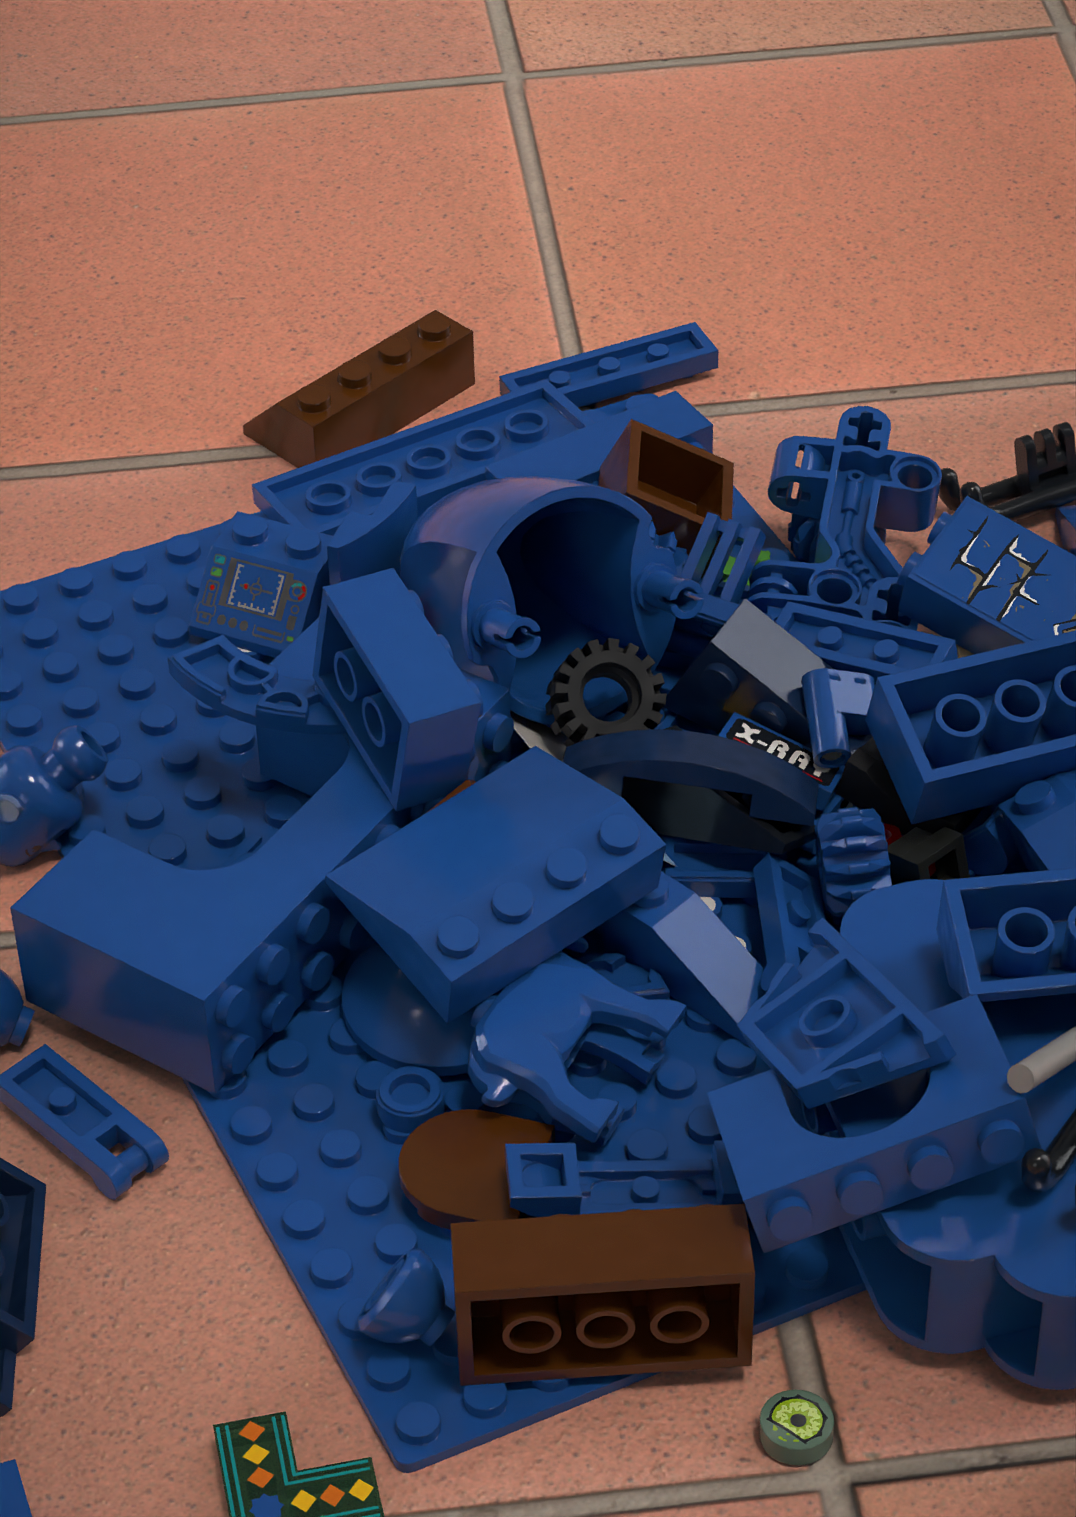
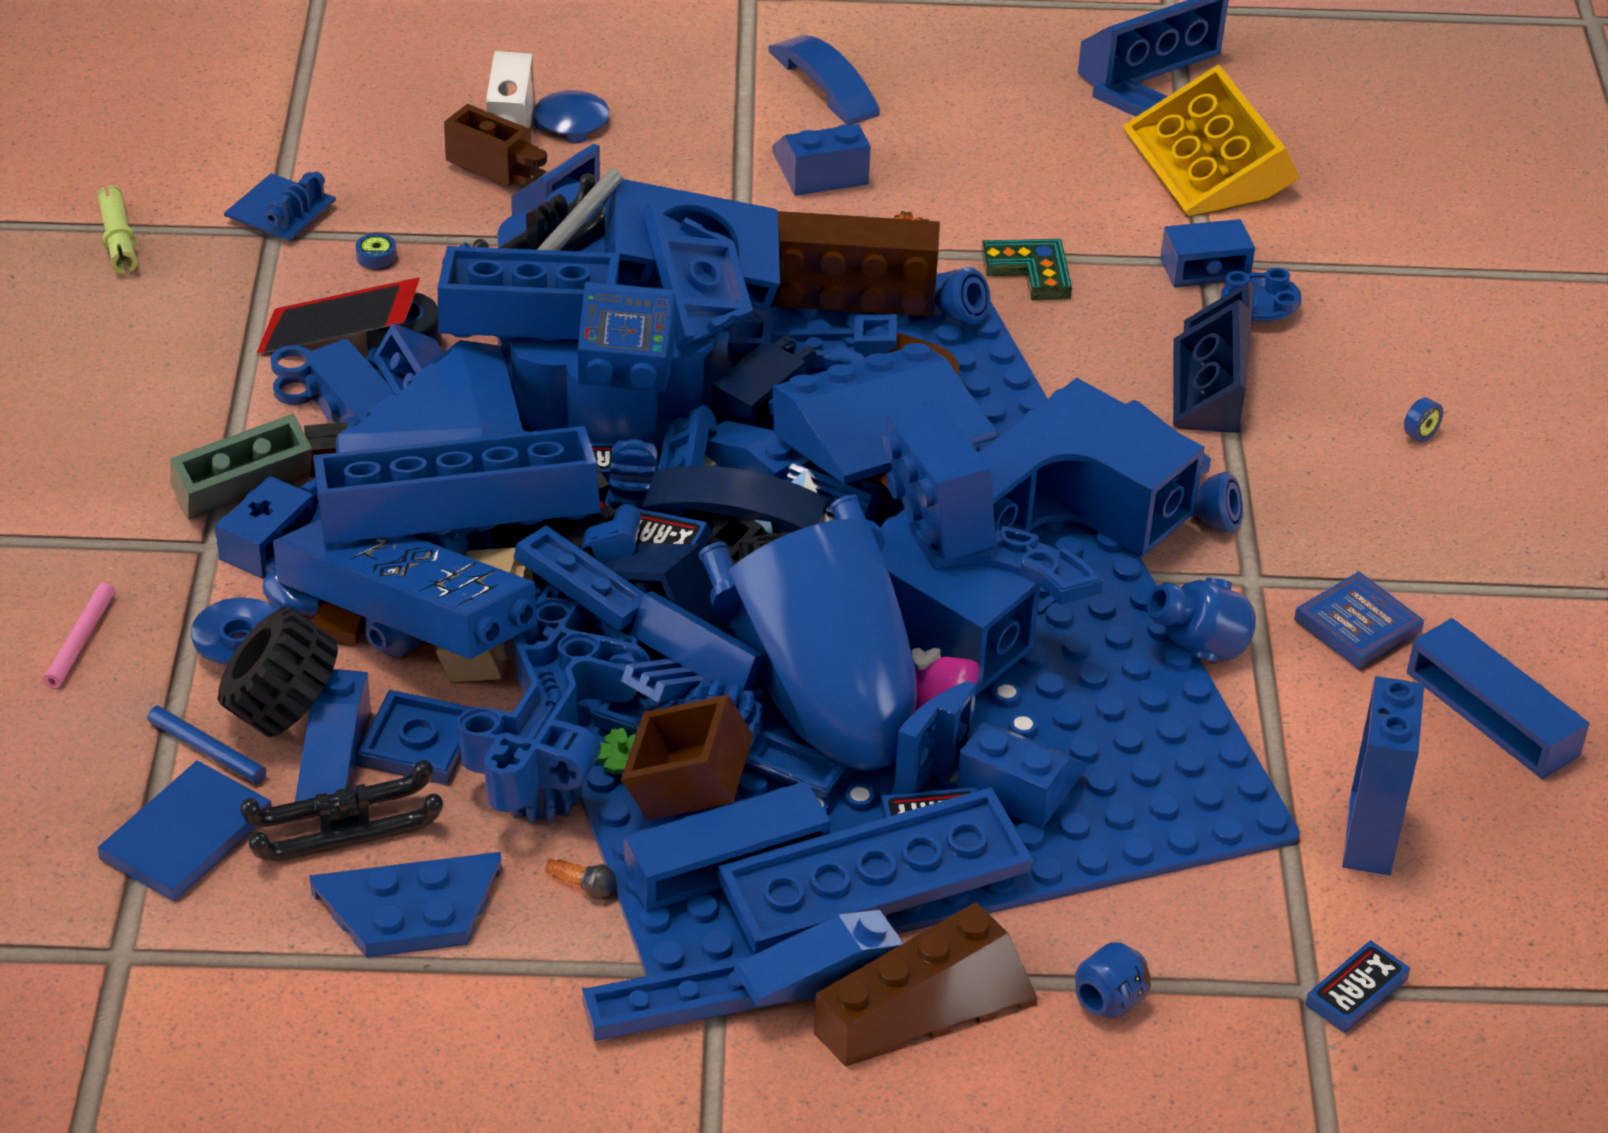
camera: 175 degrees left, 0 degrees up
(162, 418) = (1112, 980): none -> blue head
(472, 373) = (816, 957): none -> blue slope
(696, 1059) = (747, 387): none -> dark blue hinge
(747, 463) = (596, 880): none -> piece
(894, 882) = (626, 337): none -> blue slope
(953, 420) = (409, 903): none -> blue wing

